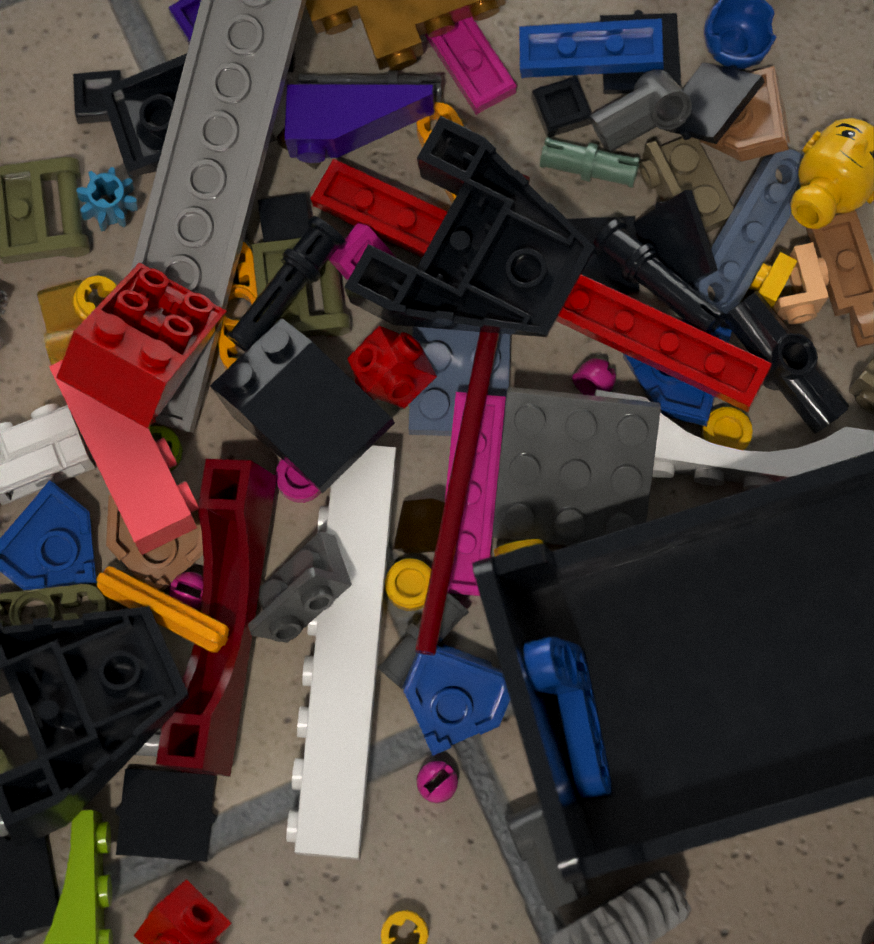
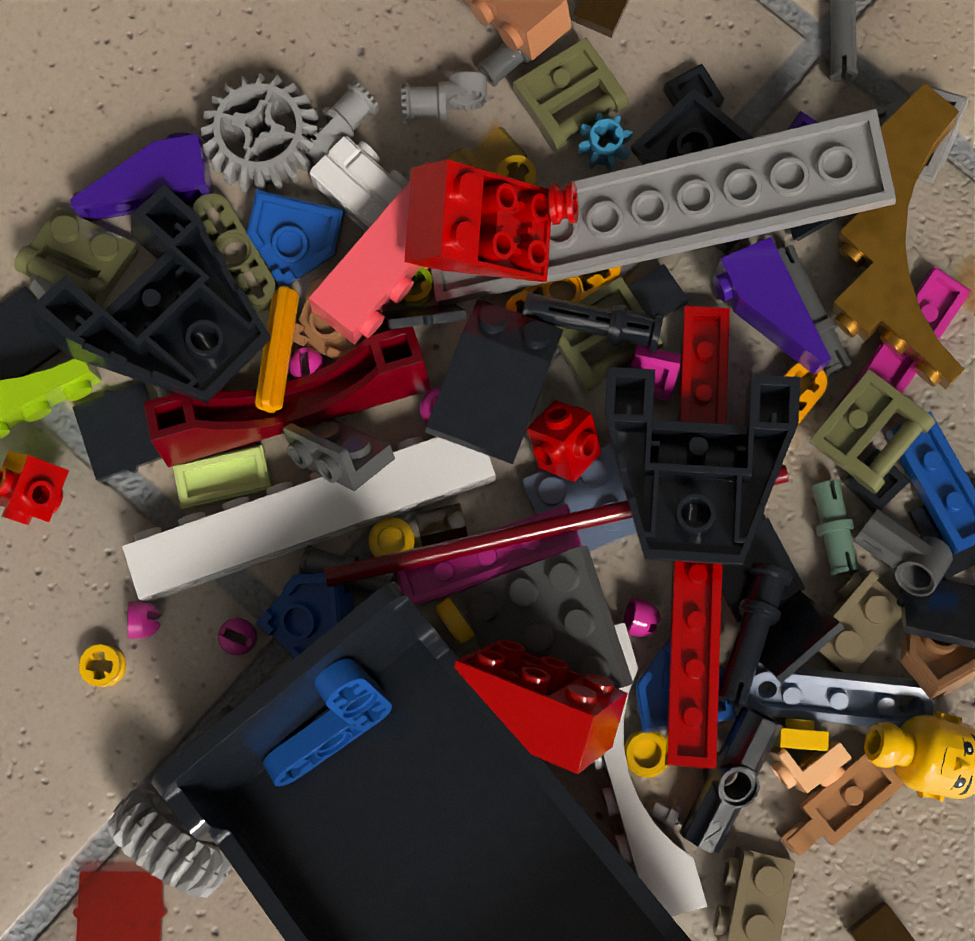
camera: 65 degrees right, 5 degrees up
(159, 256) = (563, 203): none -> red bush
(202, 444) = (424, 316): none -> black piece
(266, 727) = (222, 477): none -> yellowish green tile
(376, 873) = (141, 620): none -> dark pink hinge
(500, 91) = (860, 420): none -> olive plate
(651, 482) = (545, 704): none -> red slope
(794, 439) = (666, 815): none -> light grey piece

